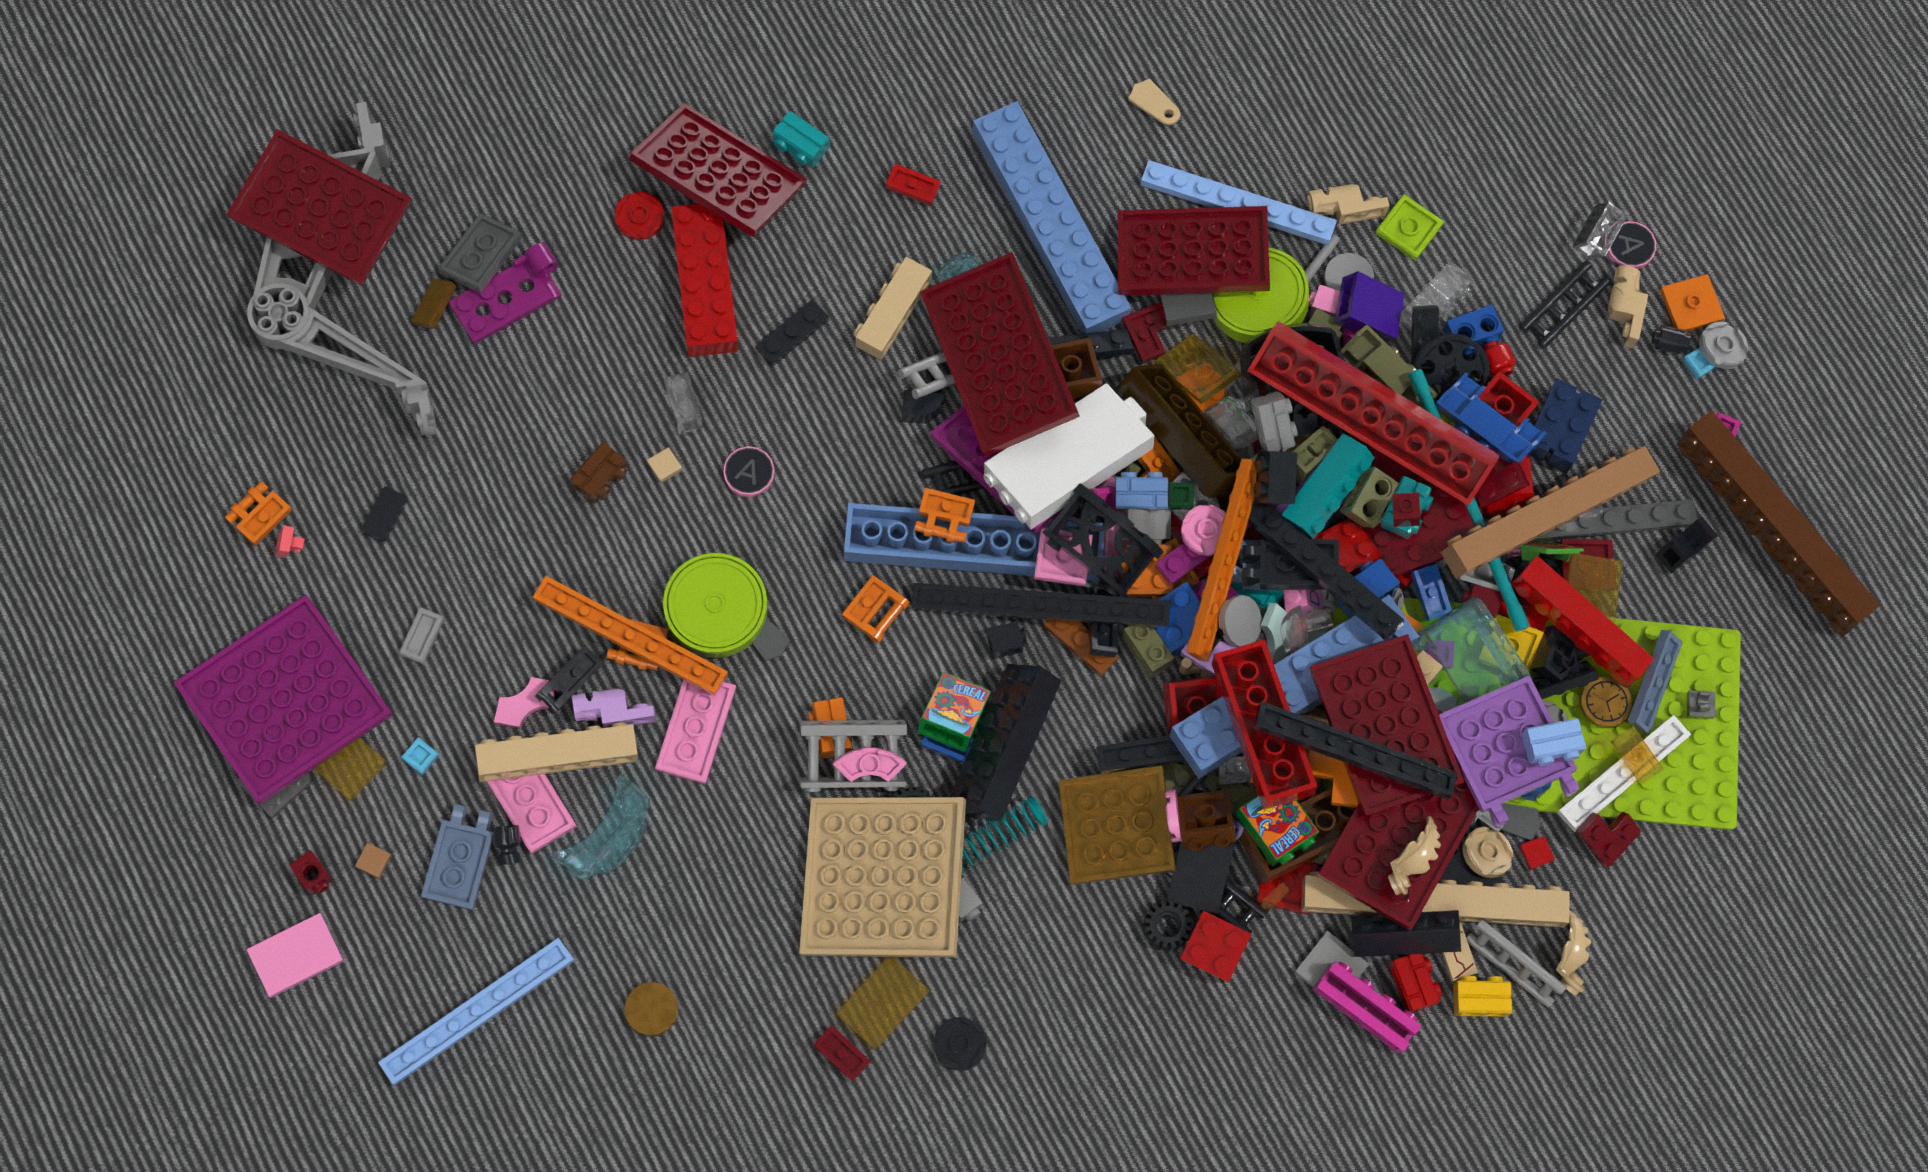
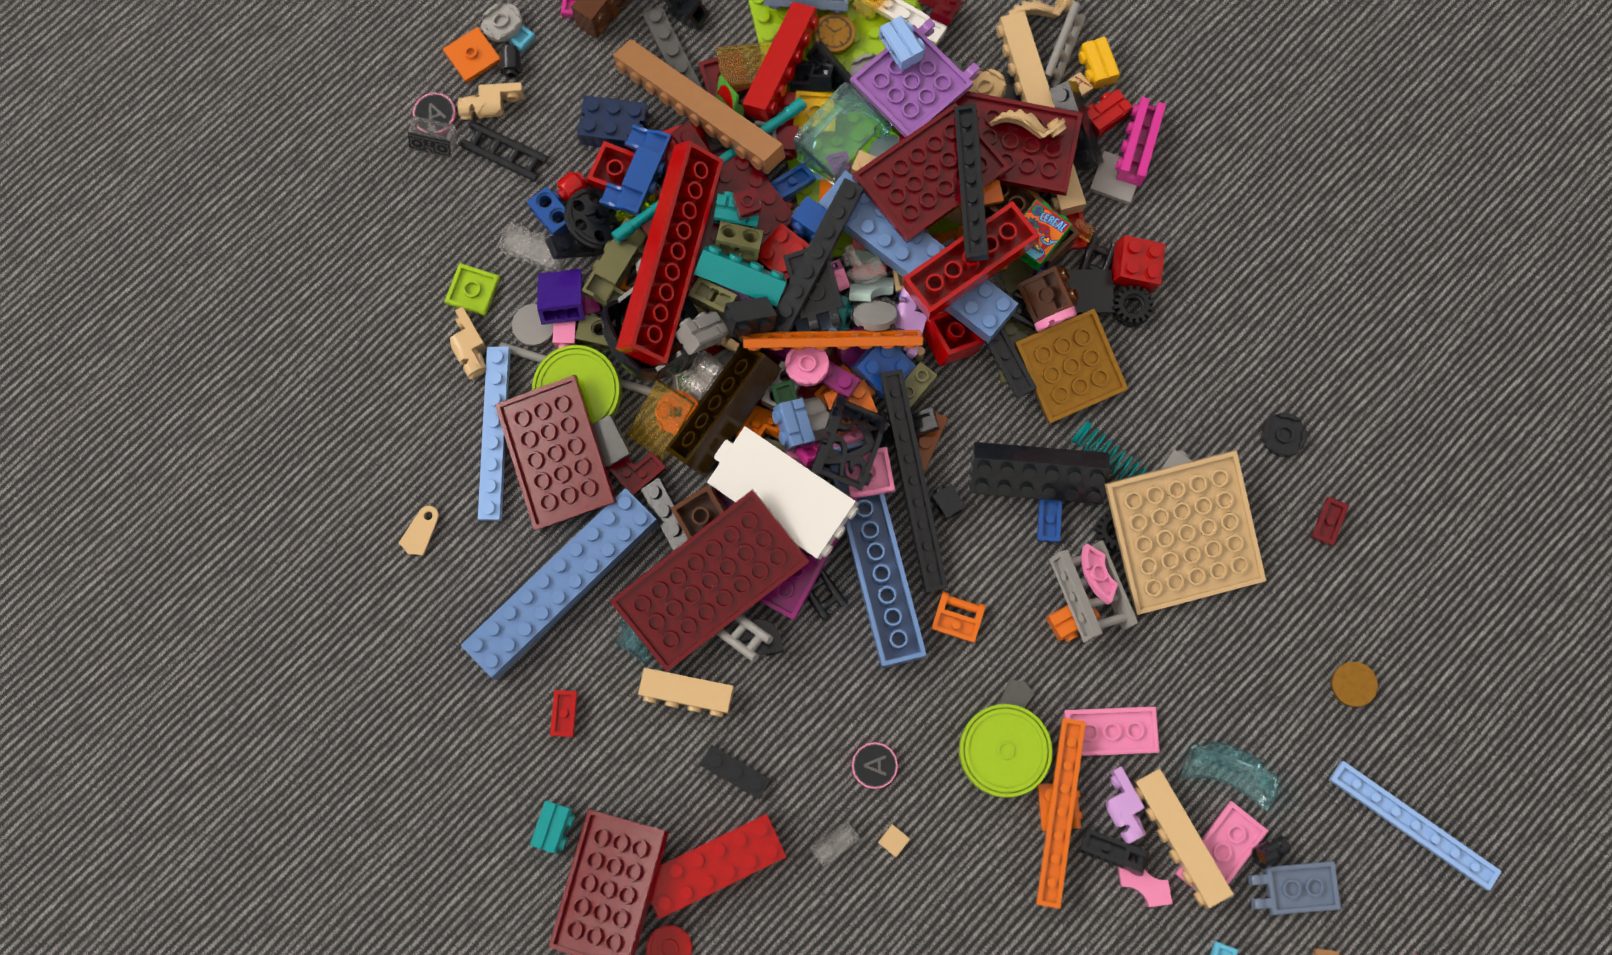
camera: 100 degrees left, 5 degrees up
(599, 473) = (922, 894): reddish brown brick -> none
(882, 1002) = (1278, 504): clear yellow tile -> none
(946, 508) = (861, 583): orange plate -> none
(954, 711) = (1025, 522): brick -> none
(1537, 853) = (969, 54): red tile -> none

